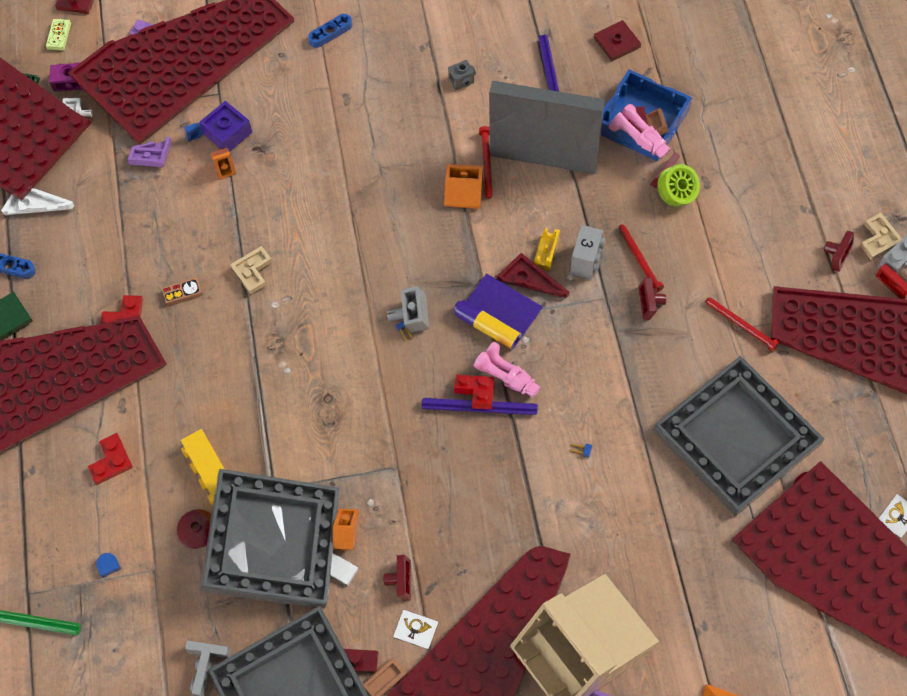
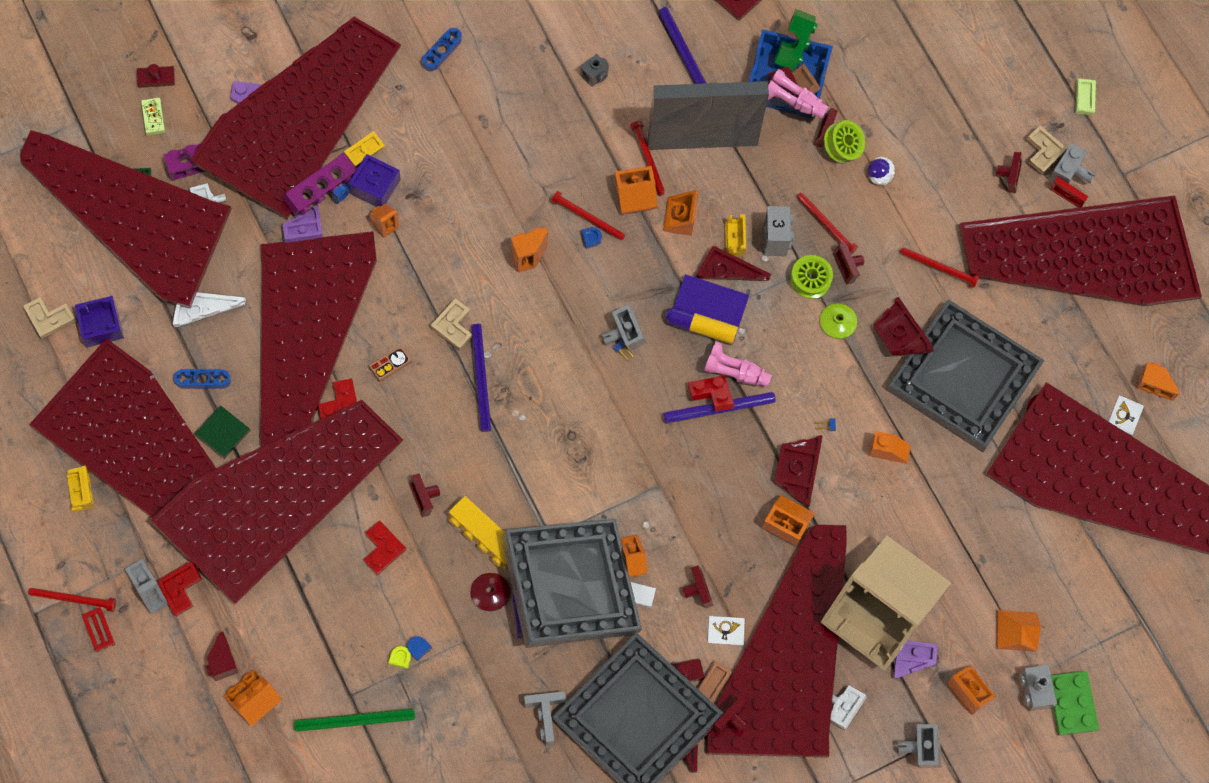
camera: 25 degrees left, 5 degrees up
(87, 569) = (400, 657): none -> neon yellow tile
(122, 232) = (306, 315): none -> dark red wing
(152, 133) = (294, 197): none -> magenta brick
(166, 418) = (423, 495): none -> dark red tile
(231, 94) = (367, 145): none -> yellow hinge
(260, 324) = (481, 380): none -> dark purple axle
(345, 215) = (529, 248): none -> orange slope
(389, 179) = (557, 198): none -> red bar
(409, 220) = (591, 237): none -> blue tile
(501, 217) = (681, 213): none -> orange slope
(512, 533) = (788, 520): none -> orange slope
(539, 484) = (798, 468): none -> dark red wing
(601, 311) = (799, 276): none -> lime wheel
(624, 359) = (835, 328): none -> lime dish
(638, 487) = (889, 447): none -> orange slope
(665, 70) = (791, 53): none -> green arch
(683, 376) = (901, 331): none -> dark red wing
(708, 221) = (881, 171): none -> hair

